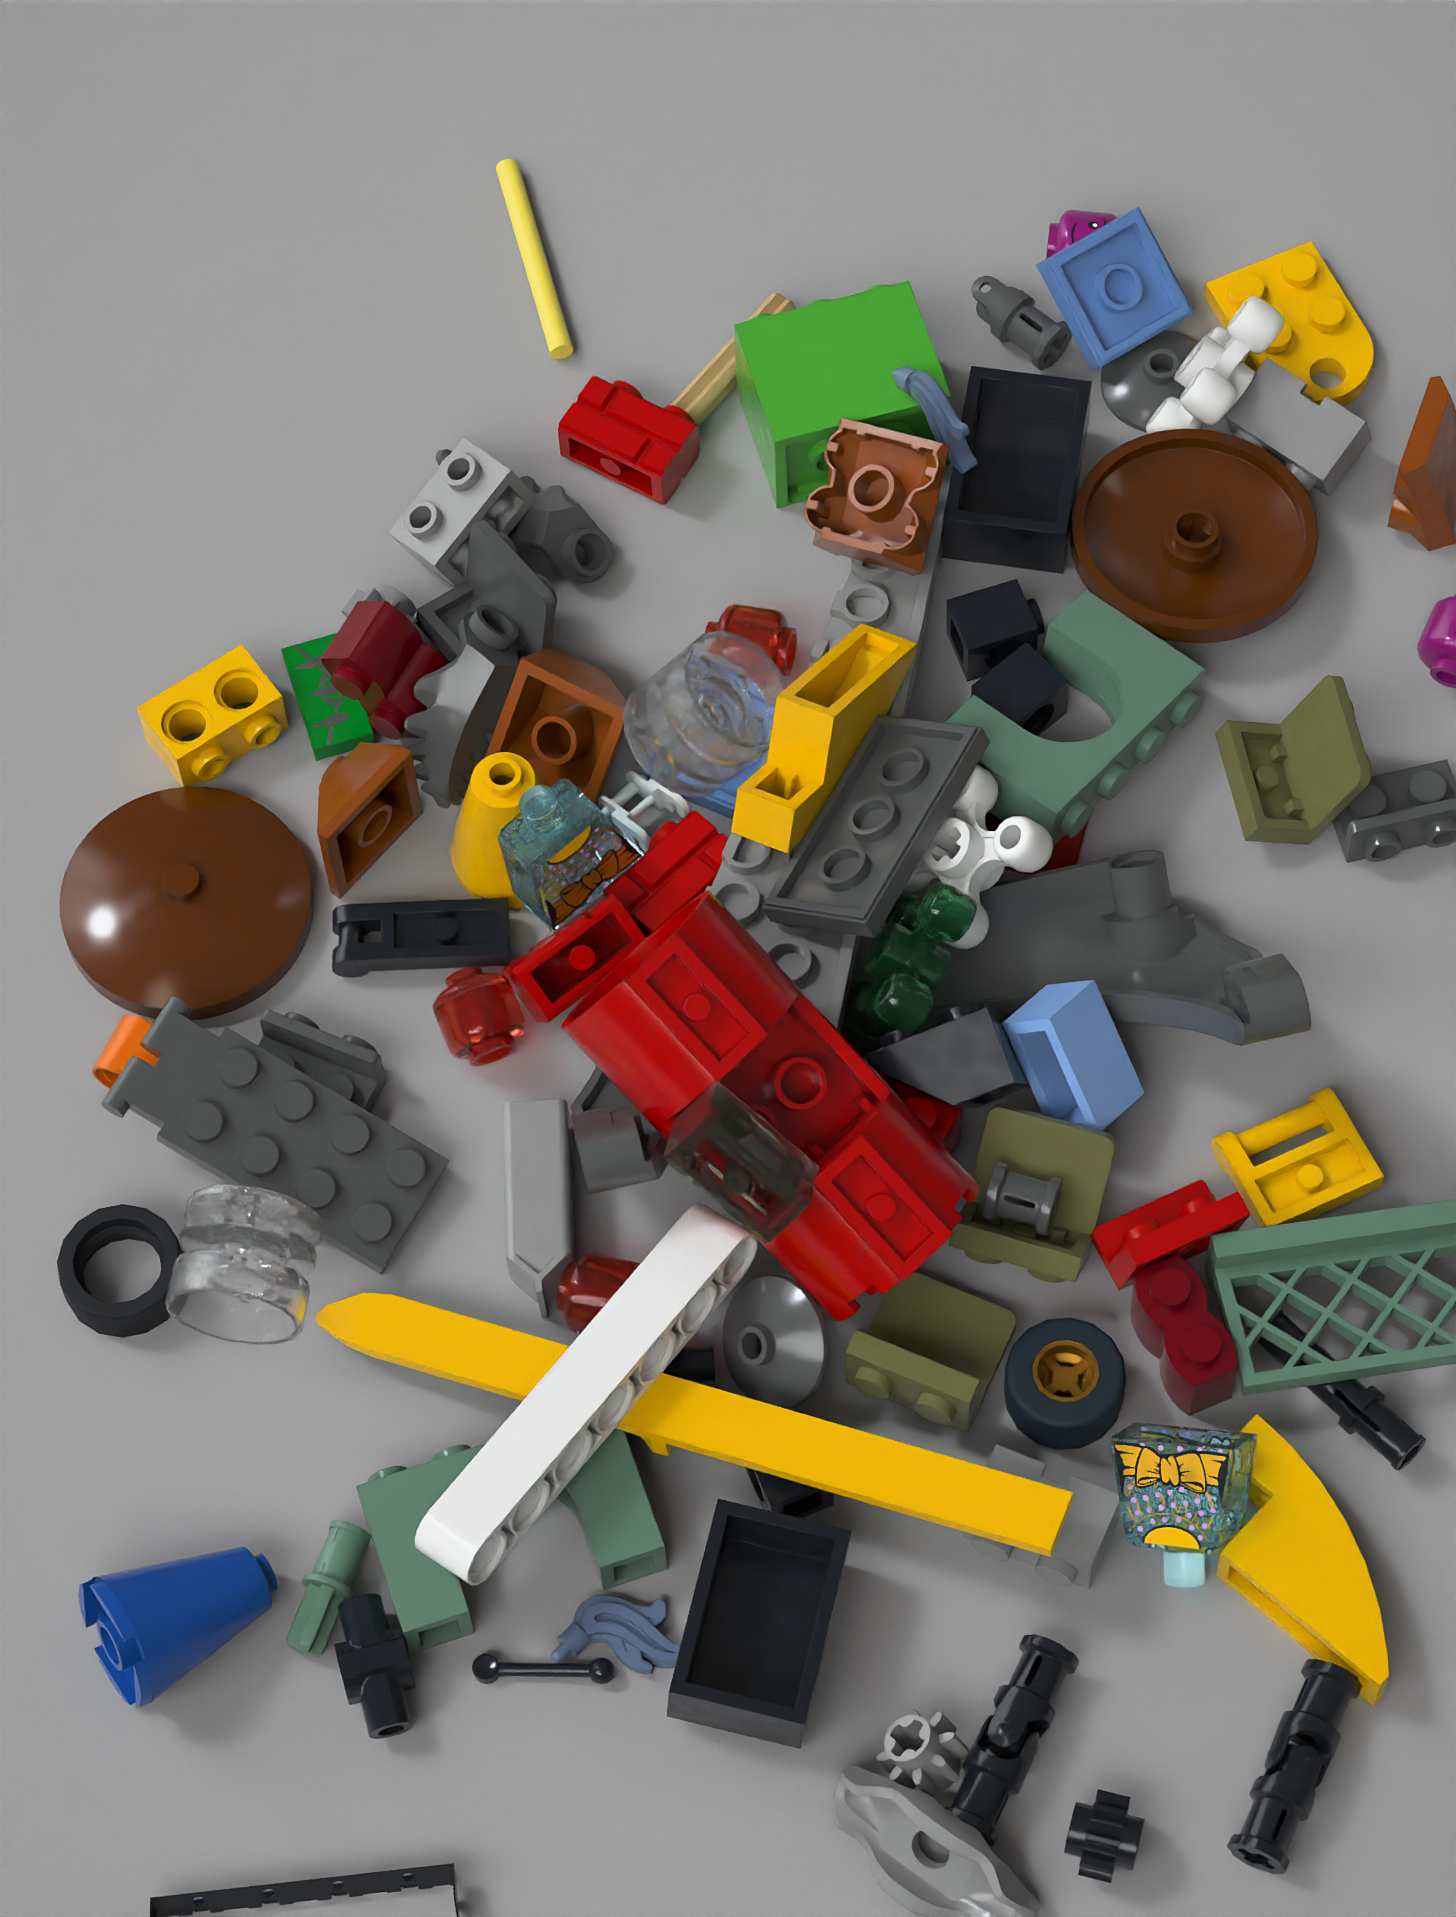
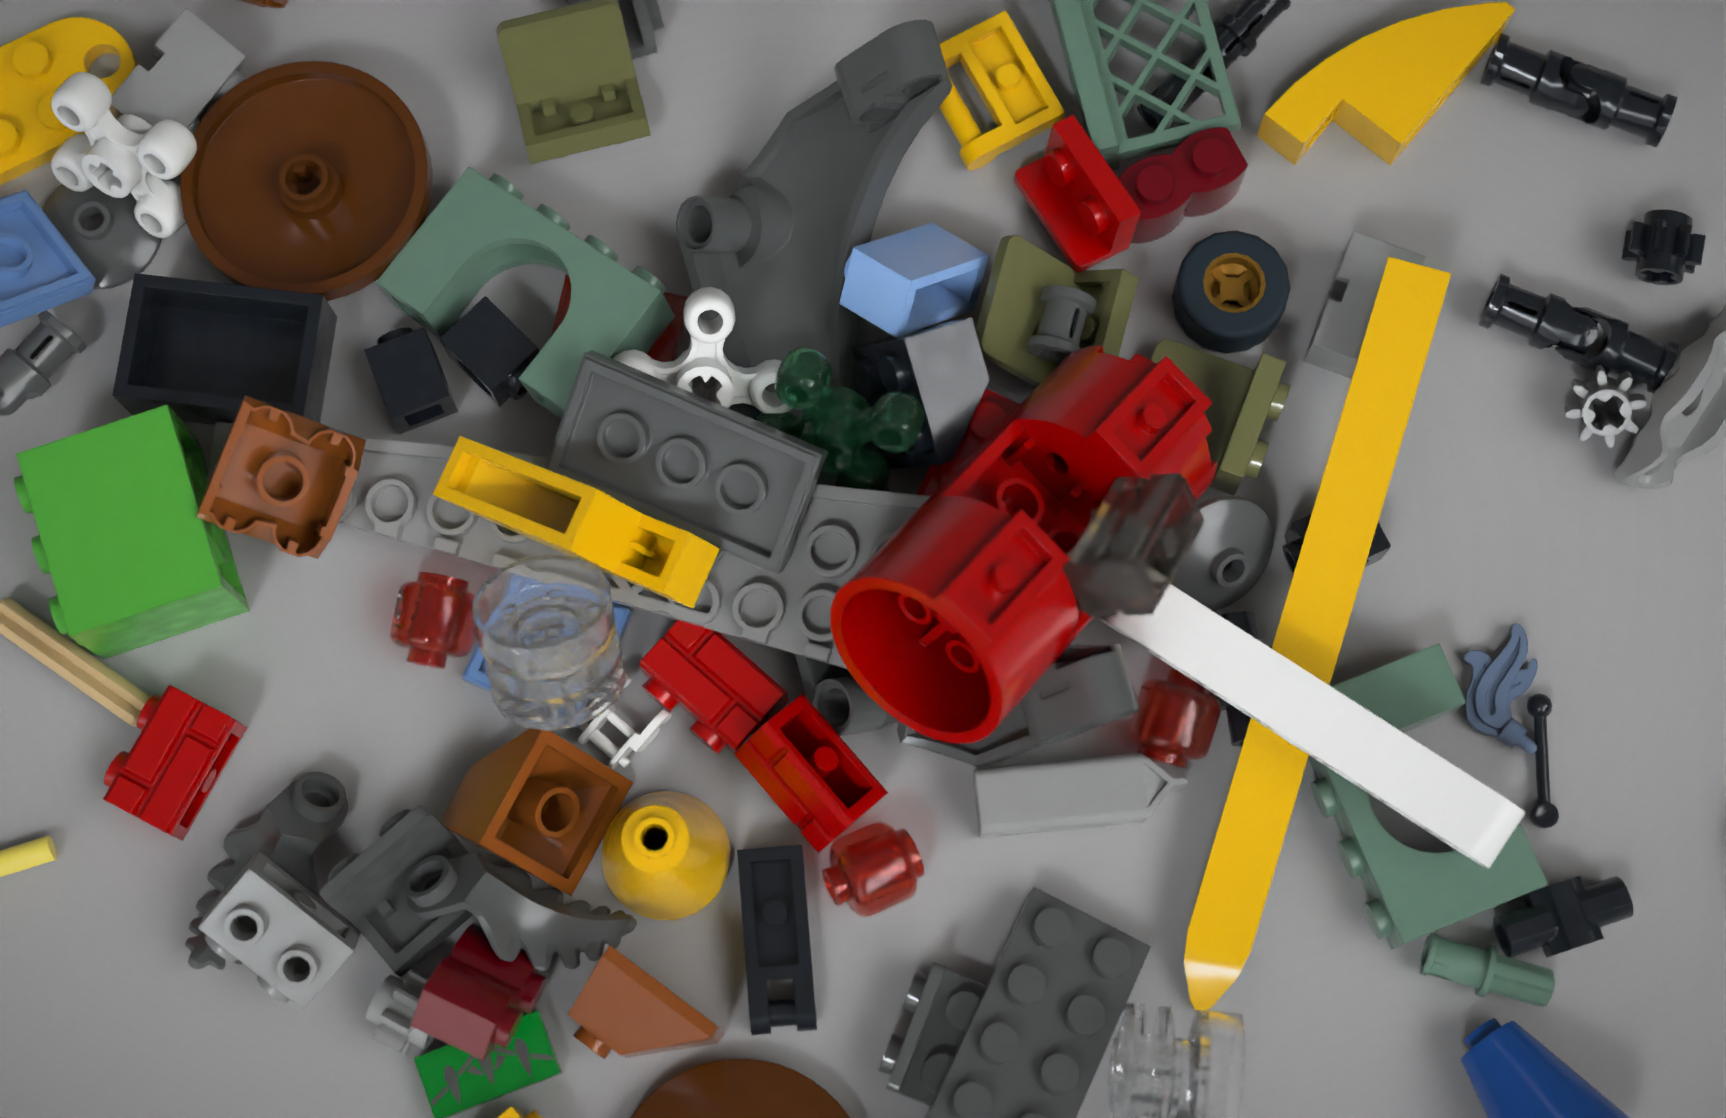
camera: 95 degrees left, 15 degrees up
(562, 852) = (709, 780): clear light blue torso -> none
(758, 1623) = (1505, 553): black piece -> none
(939, 414) = (188, 415): sand blue piece -> none
(1182, 1492) = (1345, 175): clear light blue torso -> none

